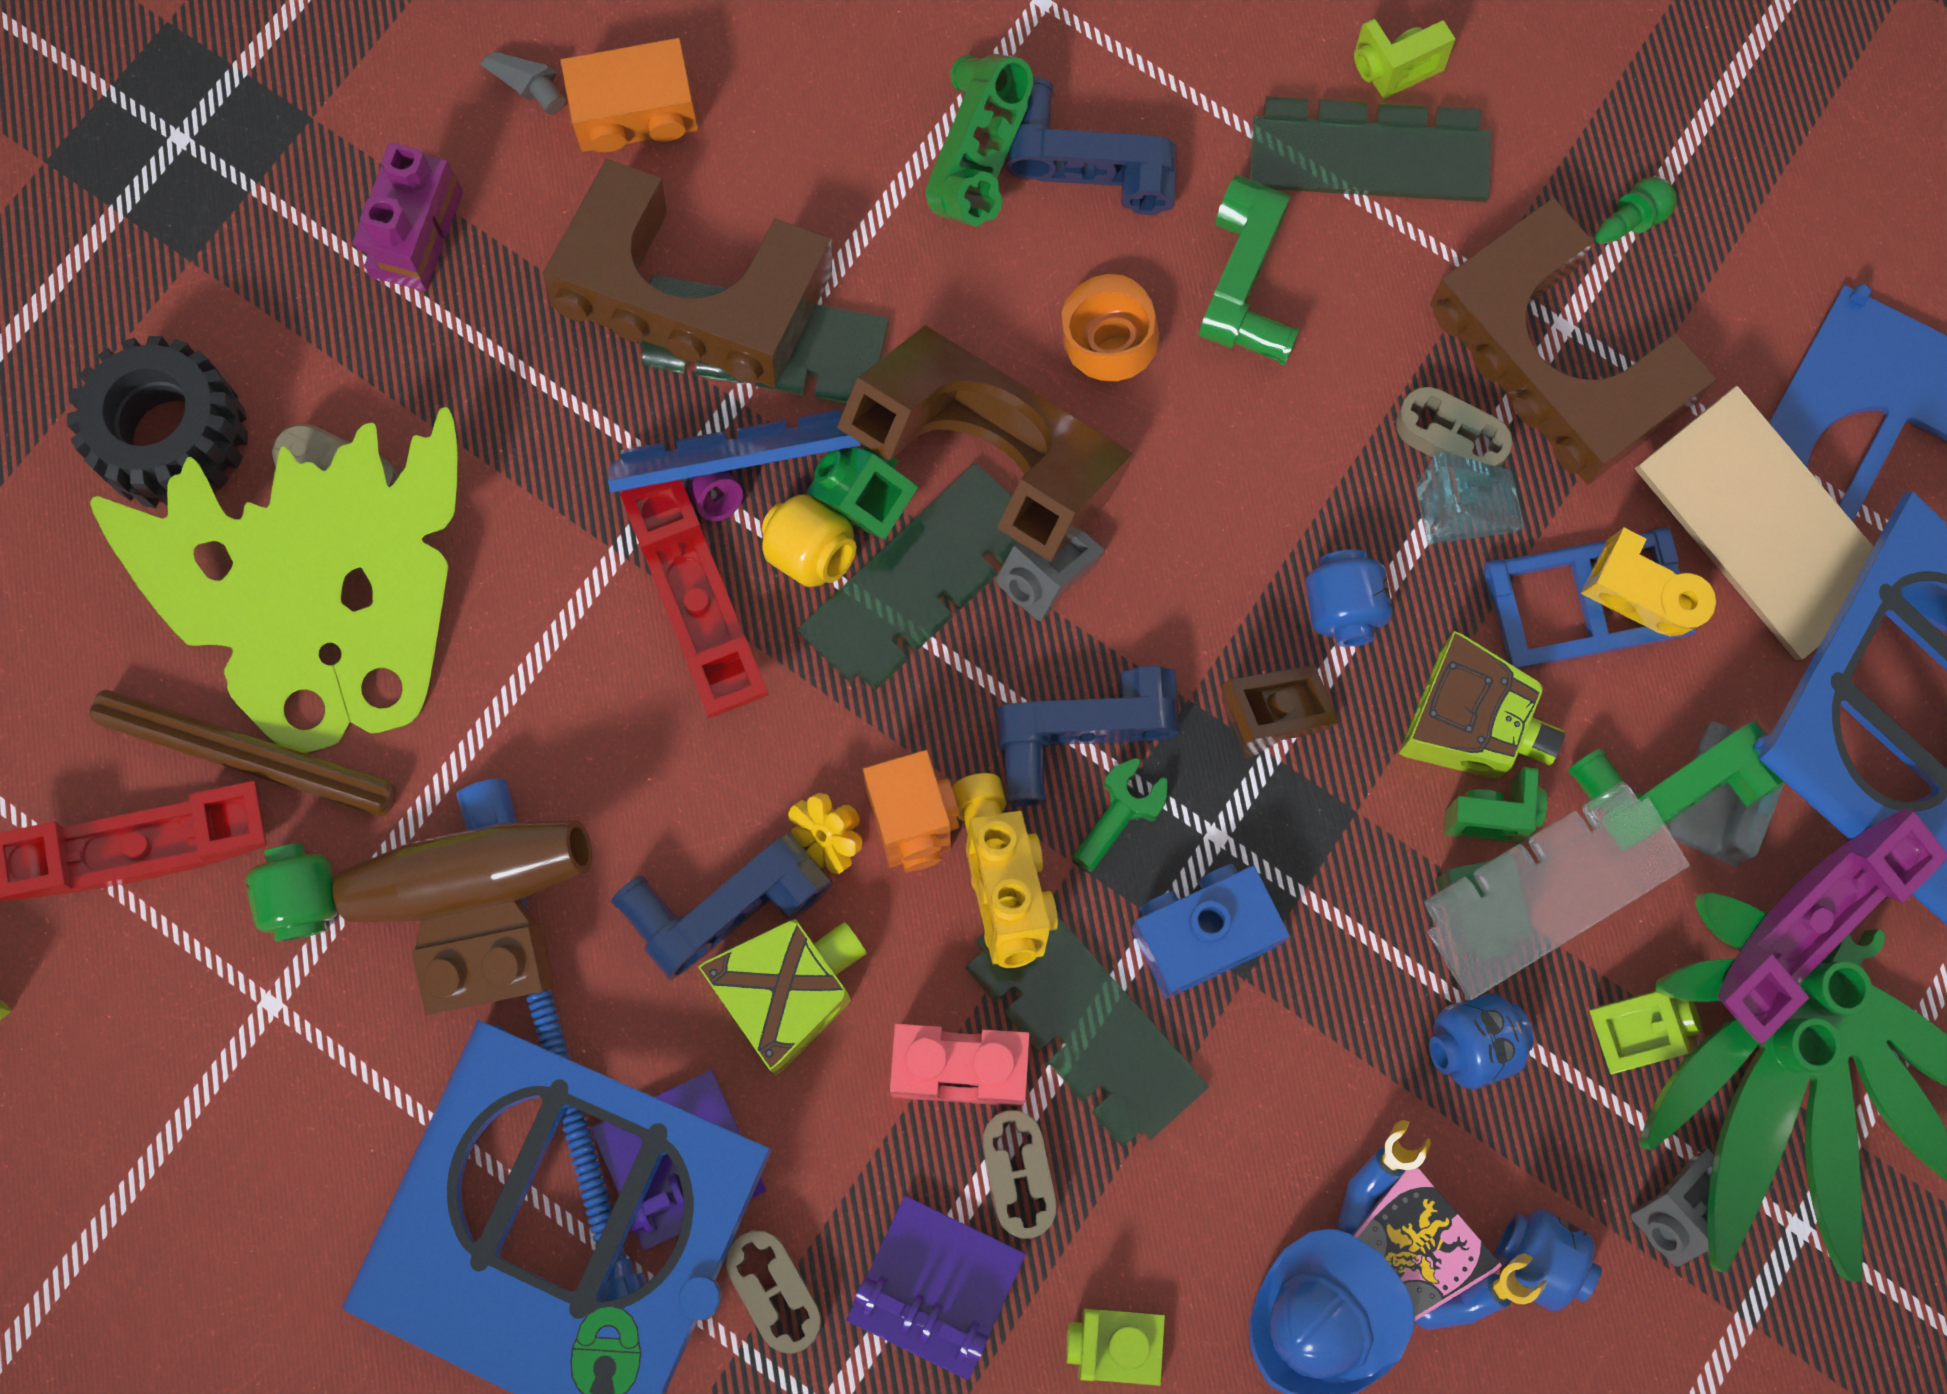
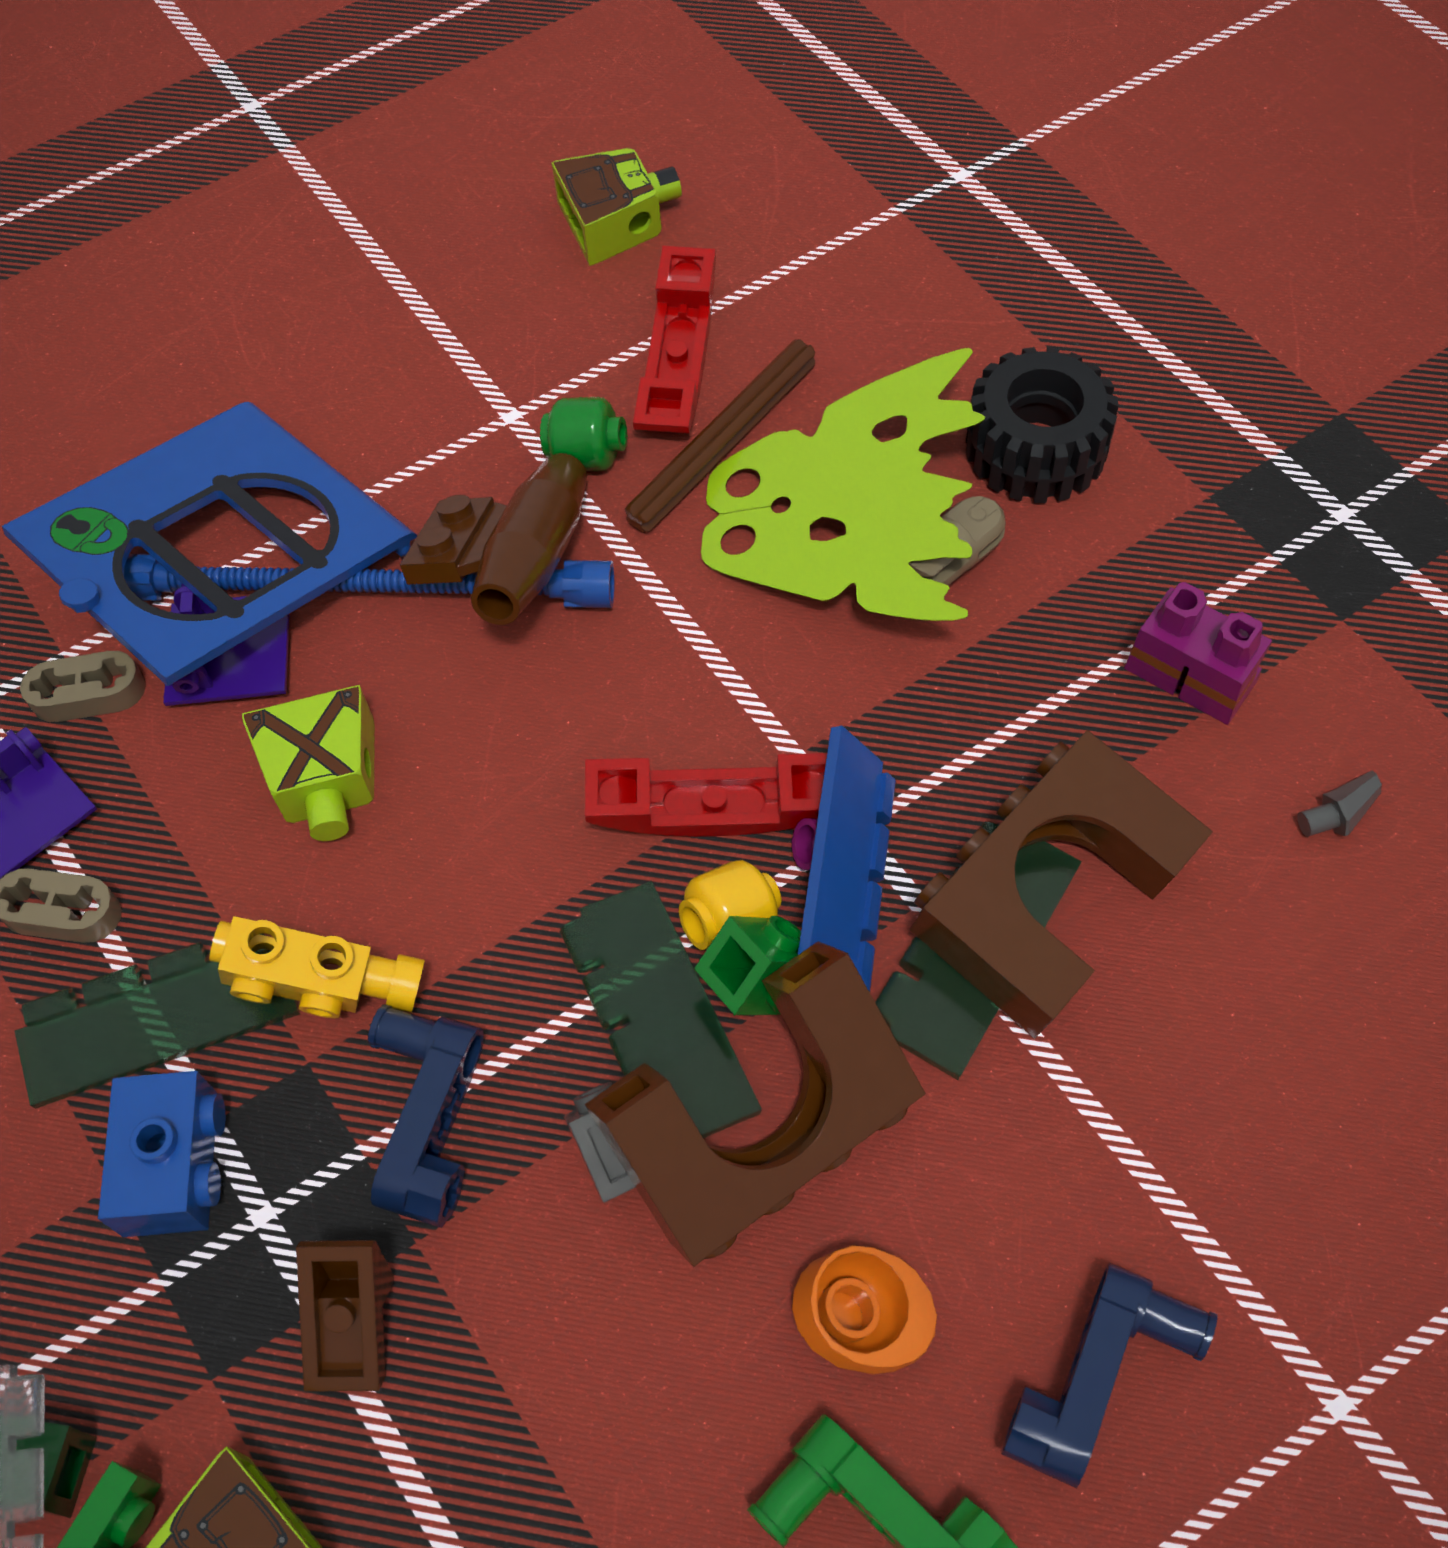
camera: 115 degrees right, 15 degrees down
(629, 96) = (1294, 890): orange brick -> none
(675, 944) = (417, 789): dark blue beam -> none
(826, 831) = (438, 841): yellow plant -> none
(911, 810) = (406, 896): orange brick -> none
(965, 174) = (1106, 1207): green beam -> none
(989, 1060) = (138, 898): coral brick -> none
(1120, 812) = (330, 1122): green bar -> none
(1348, 597) = (432, 1463): blue head -> none

